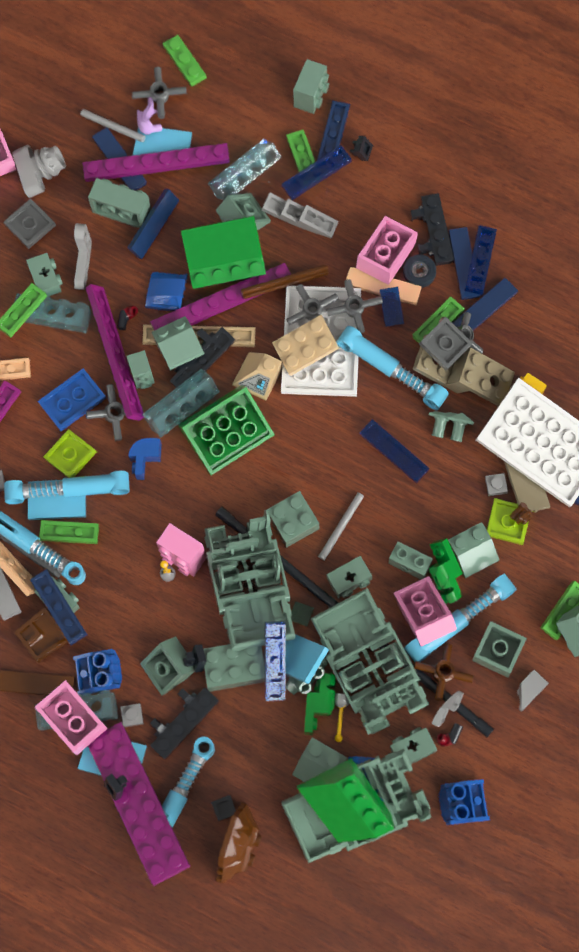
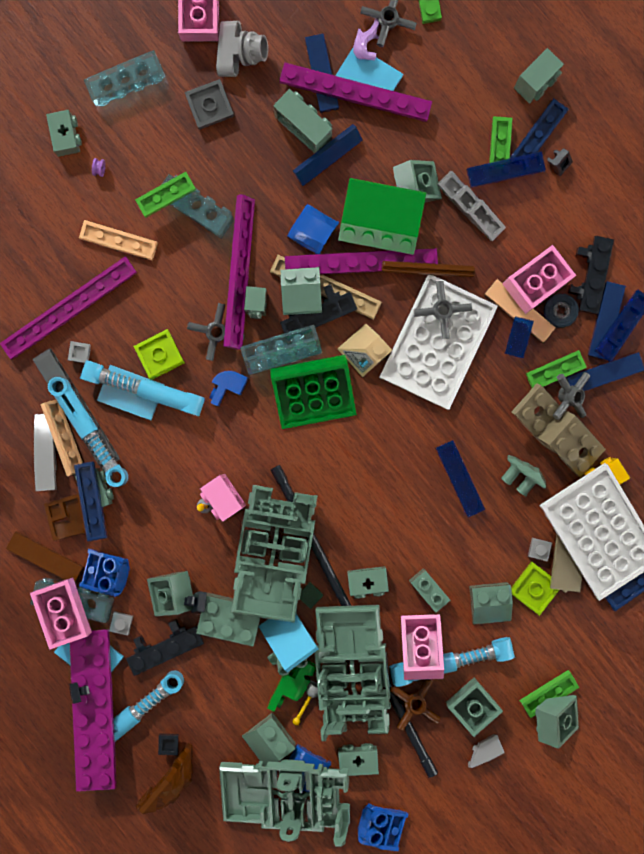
camera: 20 degrees right, 15 degrees up
(43, 265) = (198, 155): sand green brick -> none
(69, 532) = (129, 429): bright green plate -> none
(72, 399) = (181, 301): blue plate -> none
(84, 245) = (252, 148): light grey beam -> none
(112, 125) = (329, 34): light grey bar -> none
(125, 315) = (265, 237): arm -> none
(245, 169) = (438, 137): clear light blue brick -> none
(275, 661) = (266, 637): clear blue plate -> none
(293, 519) = (339, 505): sand green brick -> none
(305, 345) = (421, 343): tan plate -> none
(340, 527) = (379, 529): light grey bar -> none
(347, 803) = (277, 804): green slope -> none
(353, 341) = (468, 360): medium azure piece -> none
(354, 299) = (491, 324): dark grey bar -> none
(445, 343) = (553, 403): dark grey plate -> none
(445, 571) = (457, 615): green plate -> none
(449, 738) = (396, 764): arm -> none
(451, 704) = (407, 738): light grey slope -> none
(521, 514) = (550, 591): reddish brown plate -> none

